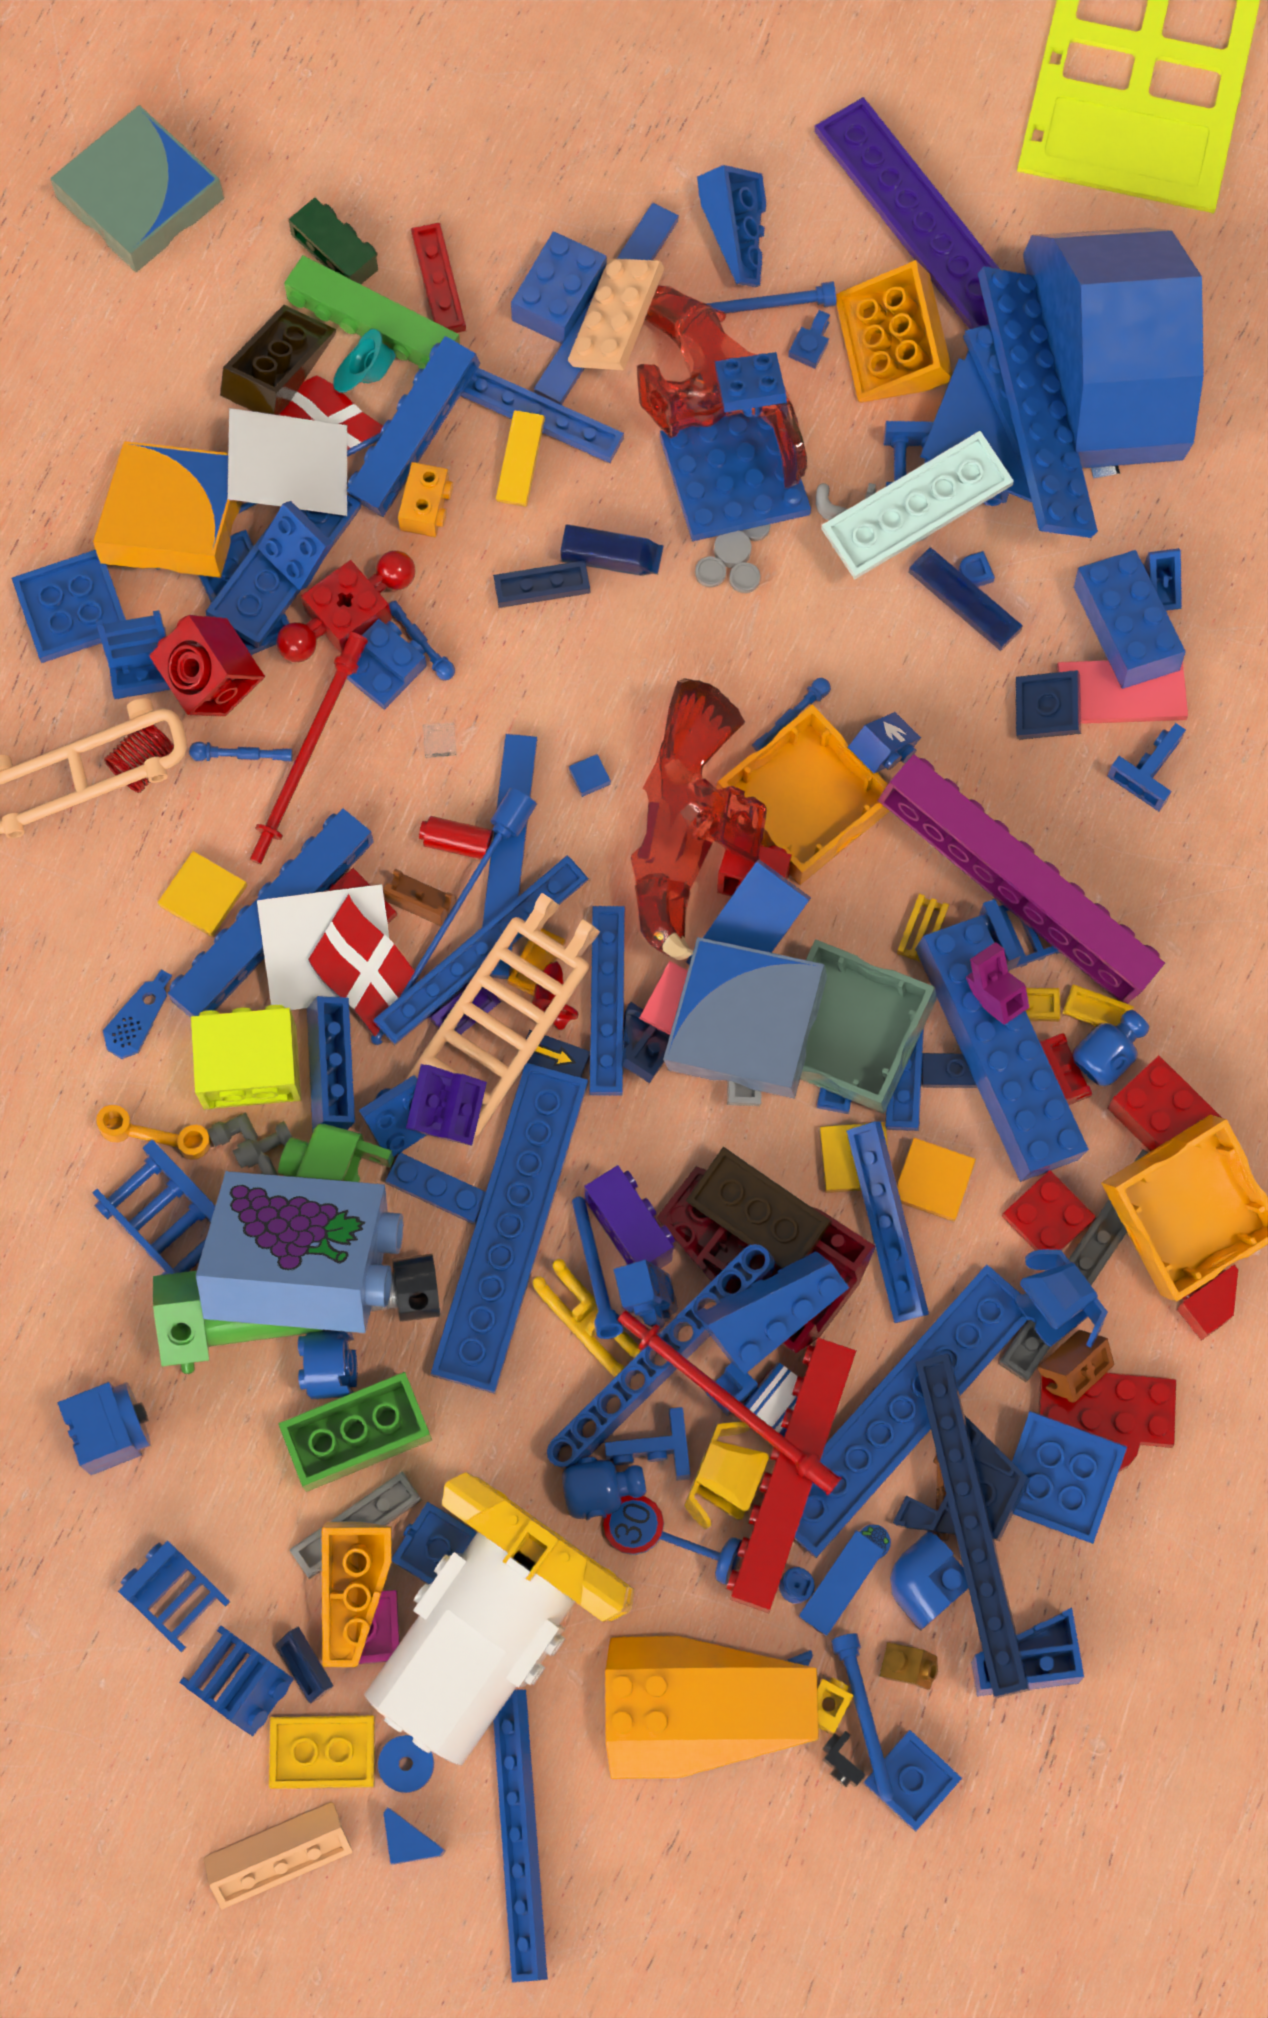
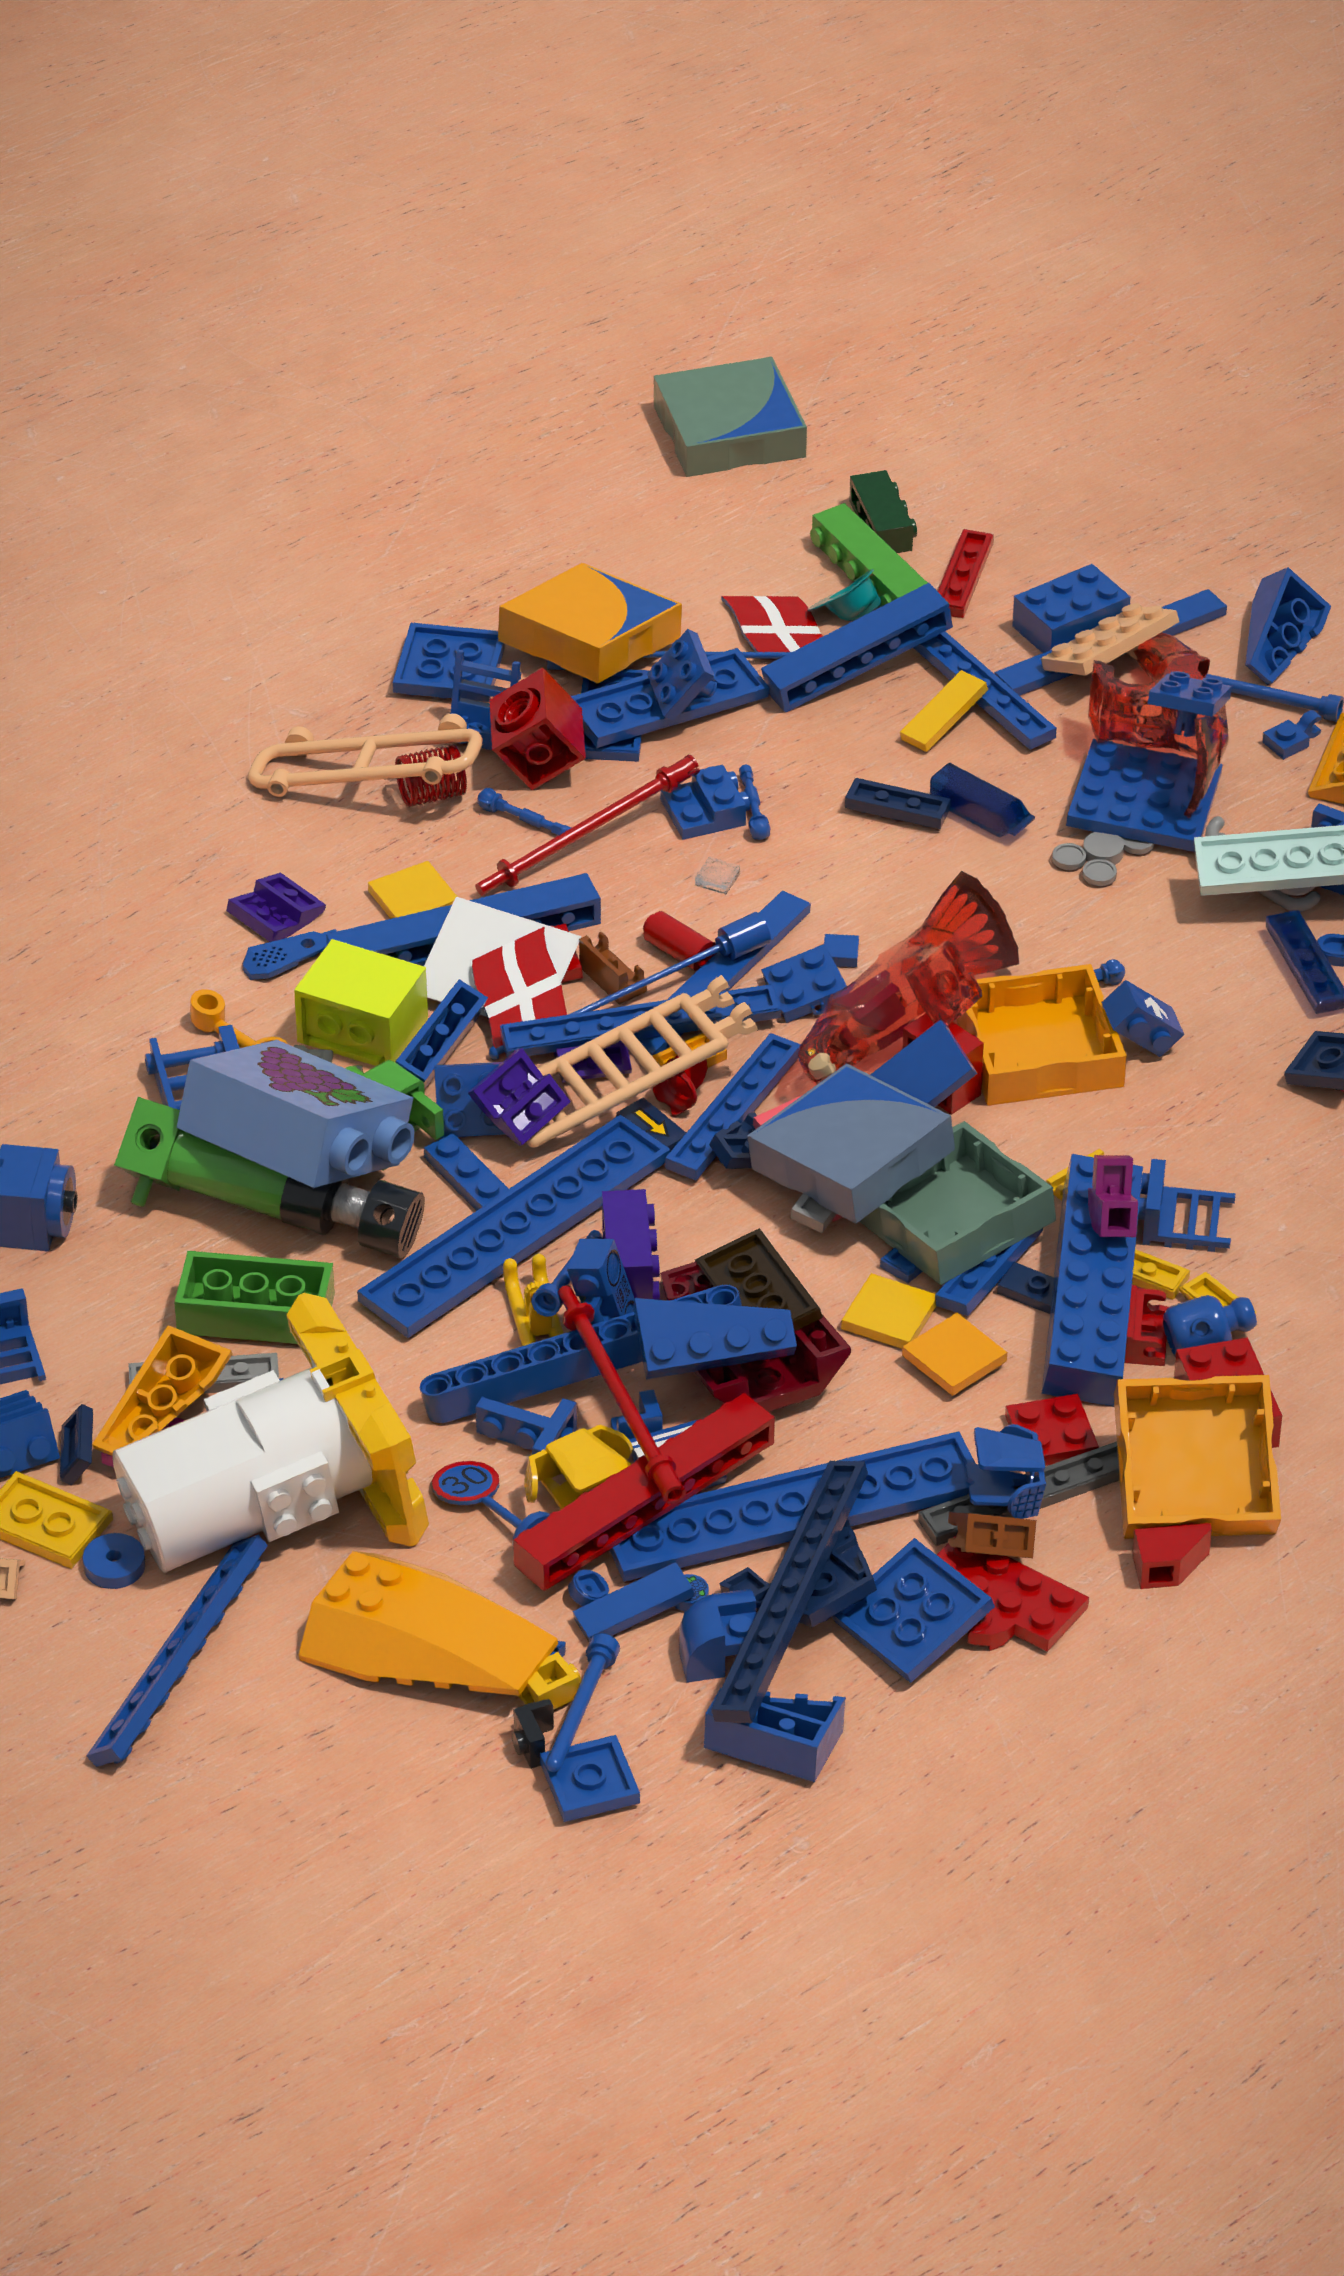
camera: 30 degrees right, 30 degrees down
(95, 969) = (276, 907): none -> dark purple slope
(275, 361) = (761, 568): dark brown slope -> none
(287, 460) = (731, 631): white sticker -> none
(327, 1364) = (268, 1231): blue brick -> none
(329, 603) = (704, 737): red brick -> none
(407, 1842) = (69, 1610): blue slope -> none
(424, 499) = (830, 706): light orange brick -> none
(586, 831) = (804, 982): none -> blue plate
(596, 1488) = (452, 1432): blue piece -> none
(887, 1222) = (882, 1359): blue plate -> none
(909, 1665) = (656, 1691): pearl gold bracket -> none
(1021, 880) = (1201, 1154): magenta brick -> none

